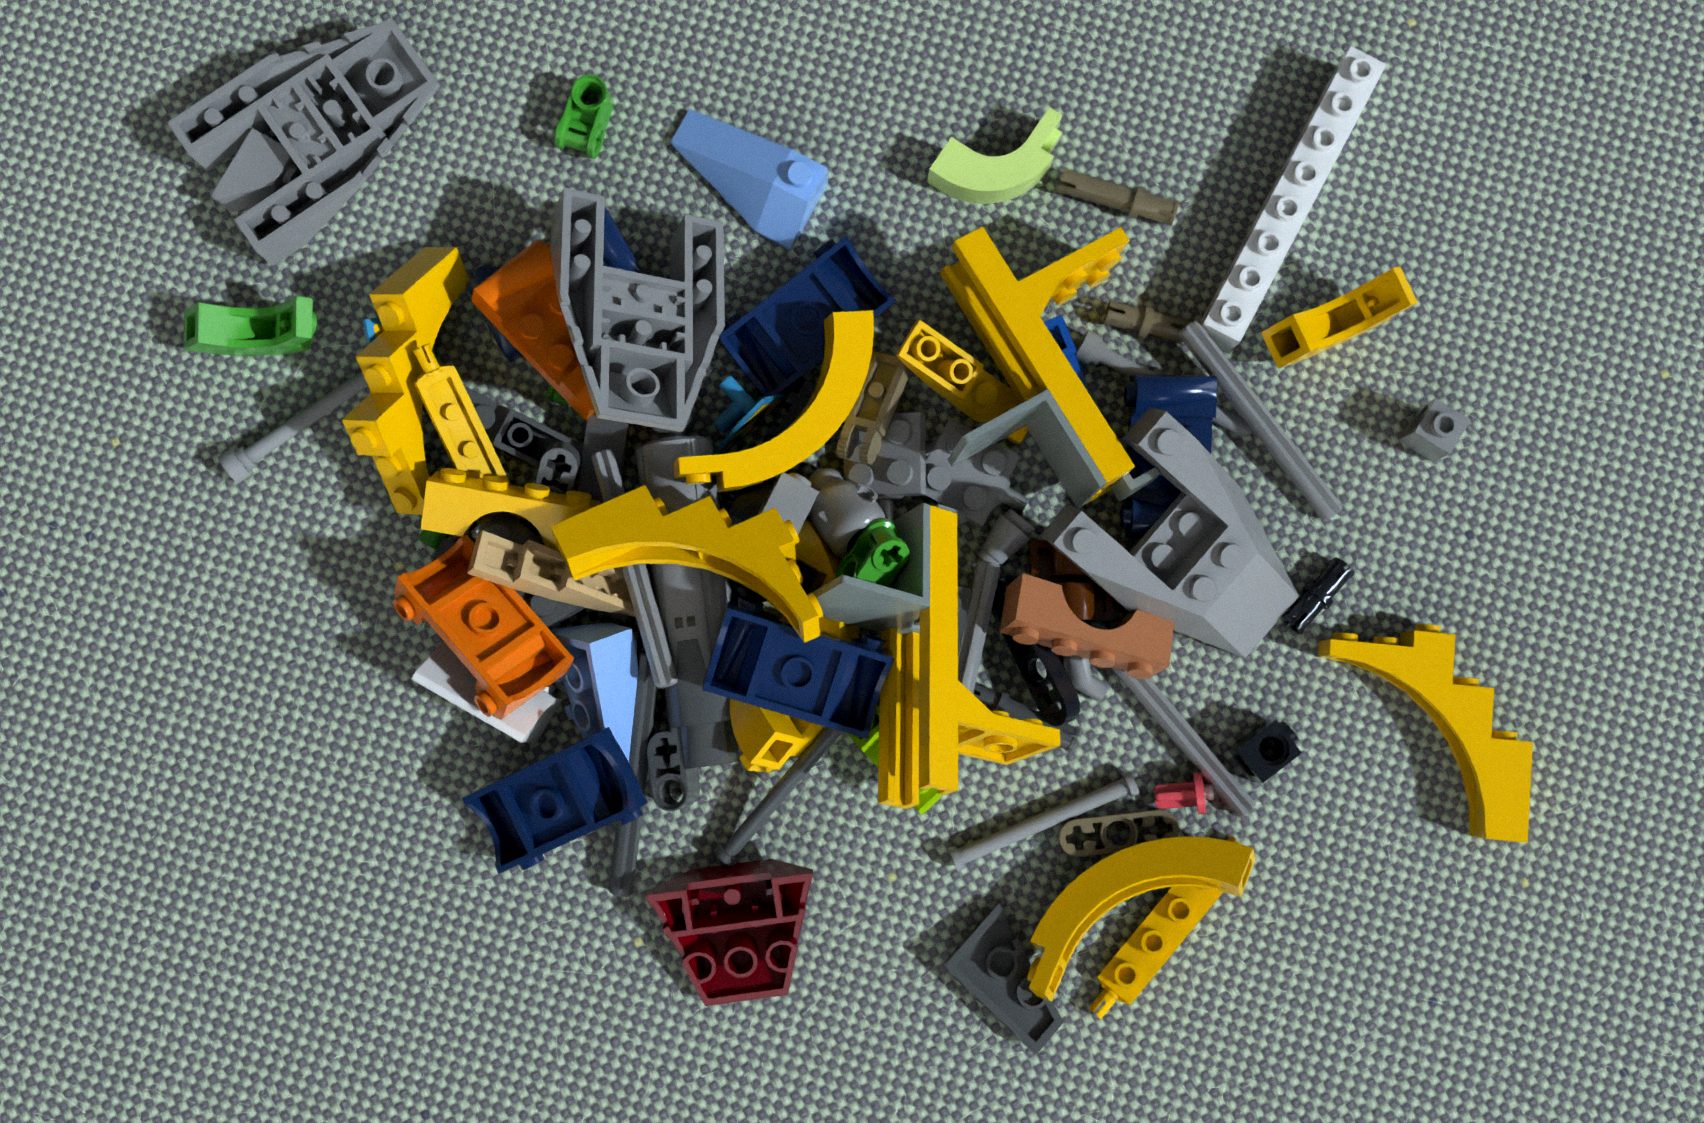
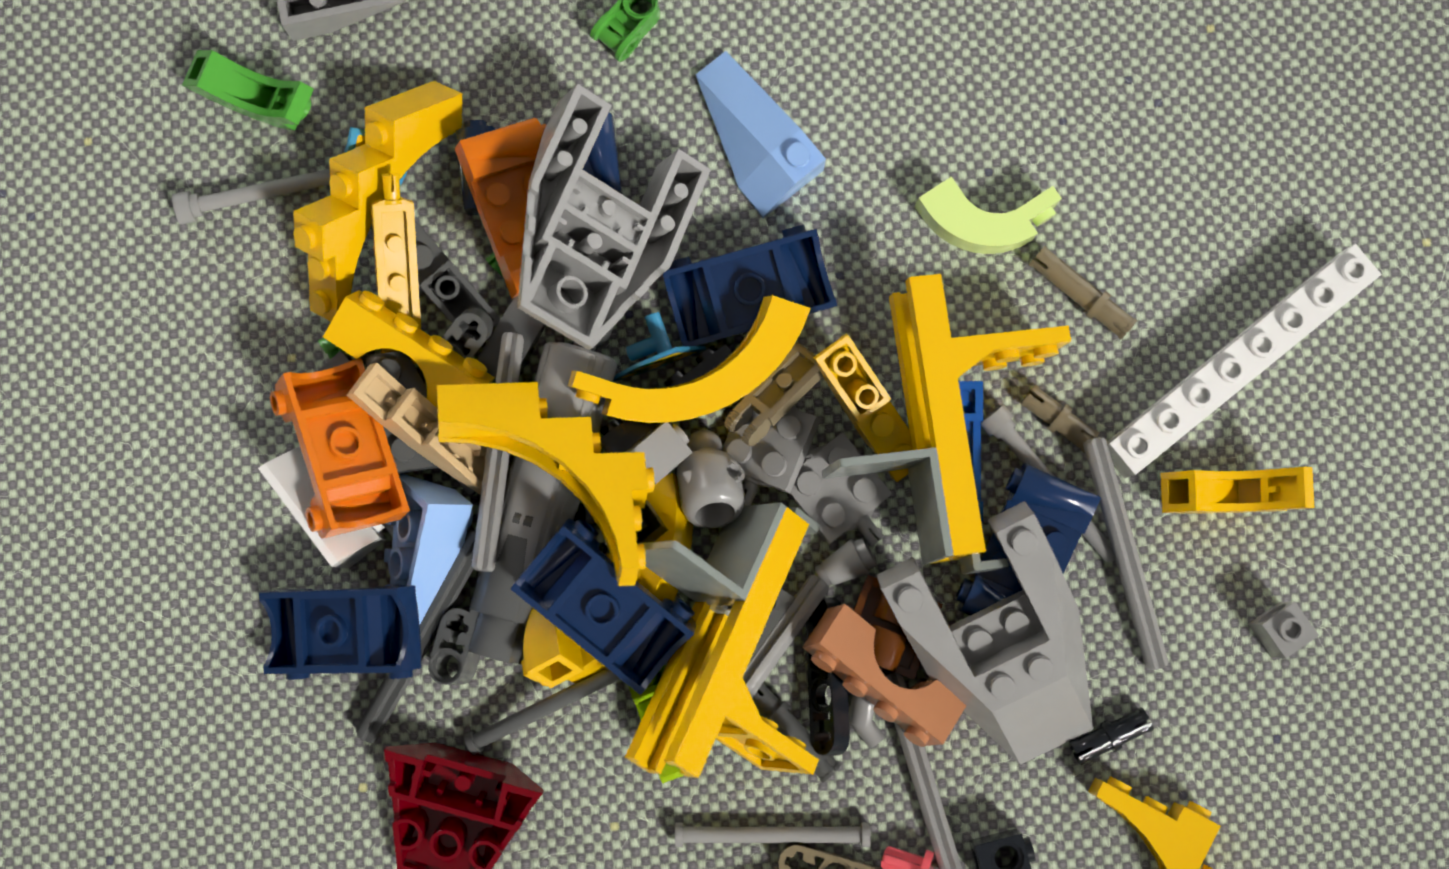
camera: 25 degrees right, 0 degrees up
(874, 561) = (717, 532): bright green piece -> none

